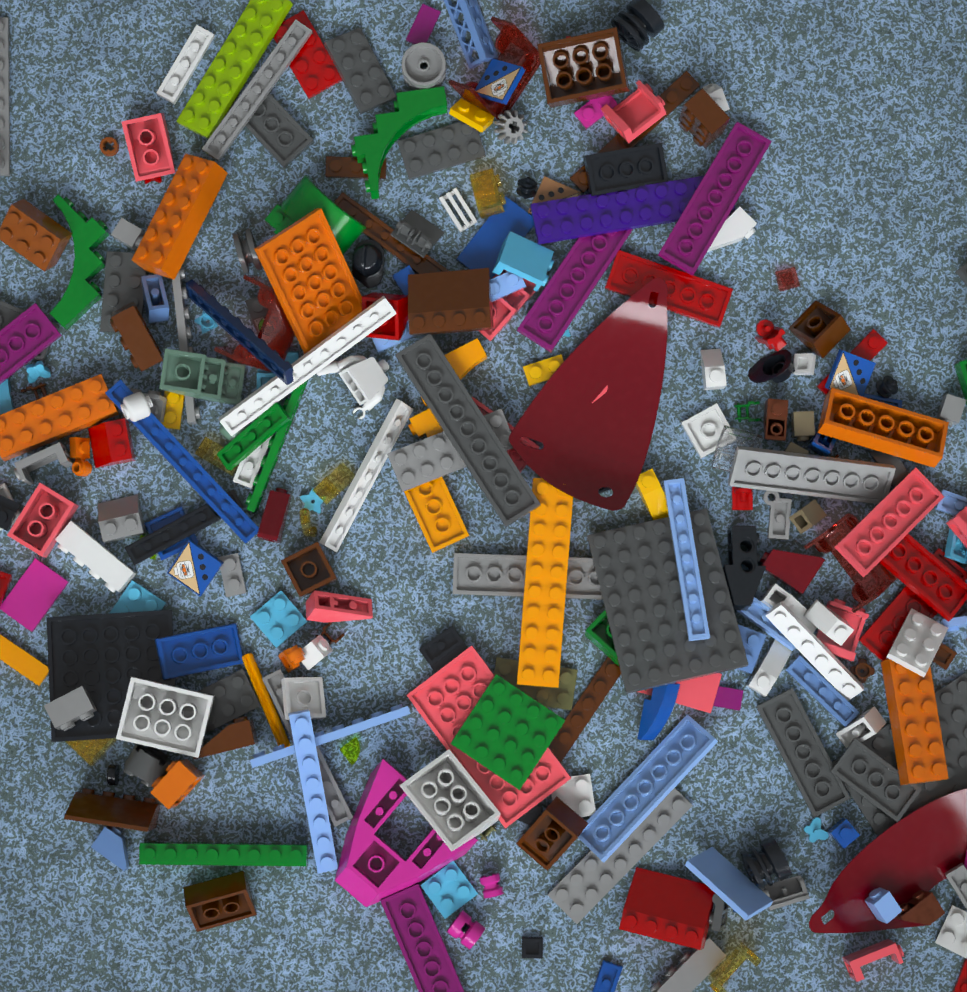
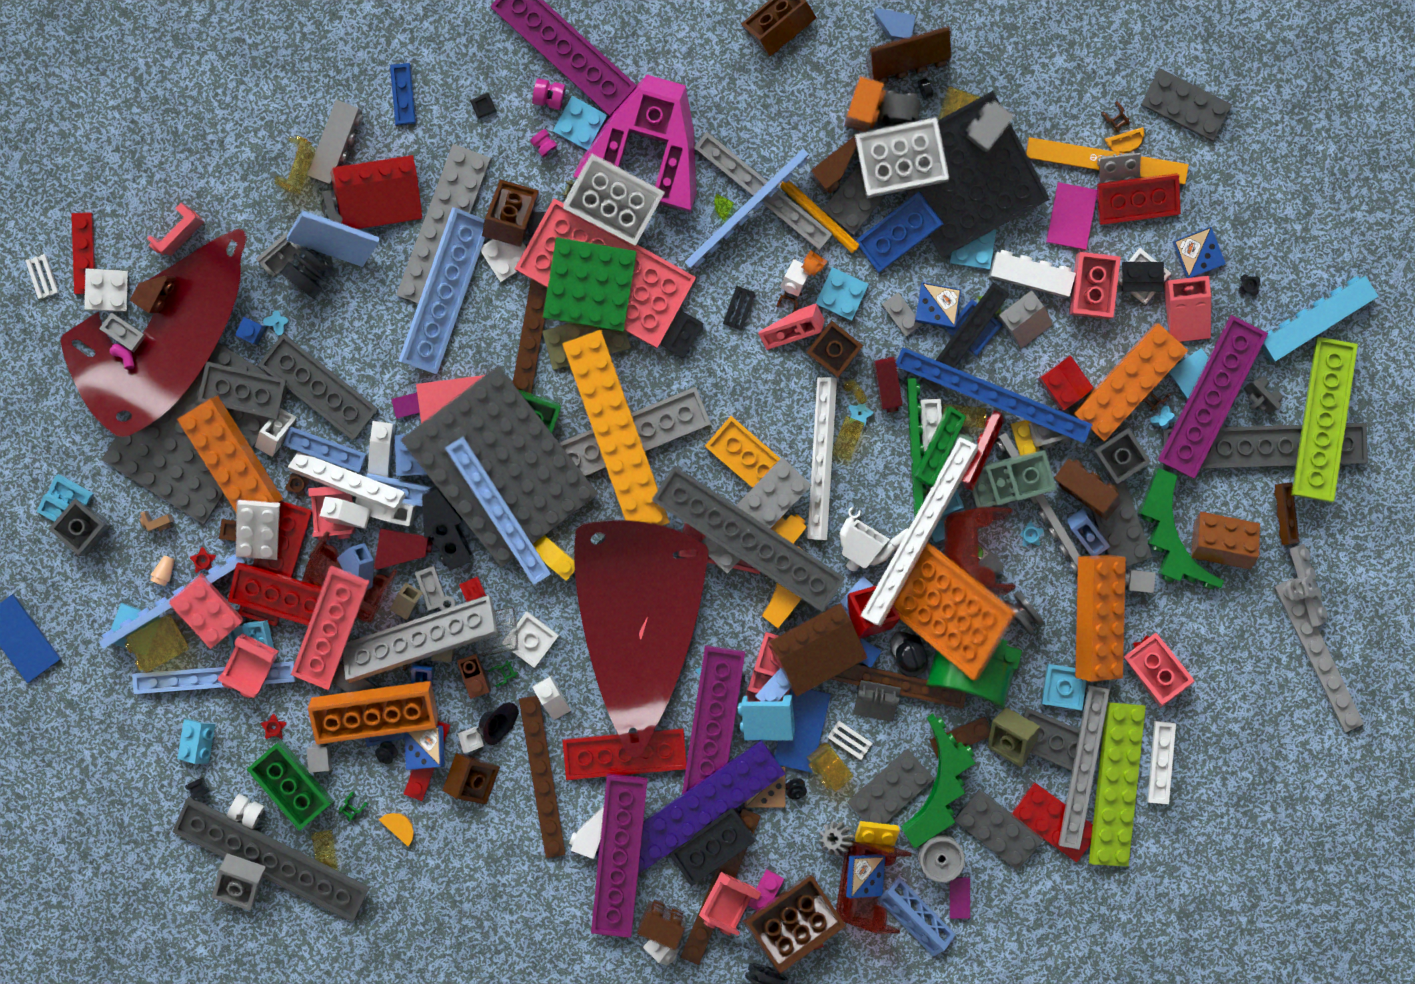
camera: 155 degrees right, 5 degrees up
(55, 452) = (1109, 353): light grey panel -> none
(80, 451) = (1091, 363): orange plate -> none
(92, 354) = (1120, 456): none -> dark grey brick
(110, 140) = (1194, 648): dark orange bush -> none
(136, 406) = (1057, 423): white head -> none
(211, 420) = (985, 444): none -> red plate
(223, 854) = (794, 63): green brick -> none
(240, 332) = (999, 535): dark blue plate -> none
(243, 170) = (1063, 688): none -> medium azure plate
(304, 694) = (786, 232): white plate -> none
(308, 145) = (1013, 736): none -> olive slope
(313, 791) = (740, 153): light blue plate -> none
(378, 638) = (744, 291): none -> black tile
(542, 370) = (705, 627): yellow plate -> none
(657, 710) = (464, 363): blue slope -> none
(753, 302) = (542, 776): none -> reddish brown plate
(770, 335) = (513, 751): red hips -> none
(787, 279) = (520, 811): clear red tile -> none
(802, 425) = (447, 682): dark tan brick -> none
(837, 571) = (358, 562): none -> medium blue slope
(883, 905) = (187, 281): light blue brick -> none
(903, 315) = (399, 825): none -> light orange tile
(936, 346) = (351, 817): none -> green piece

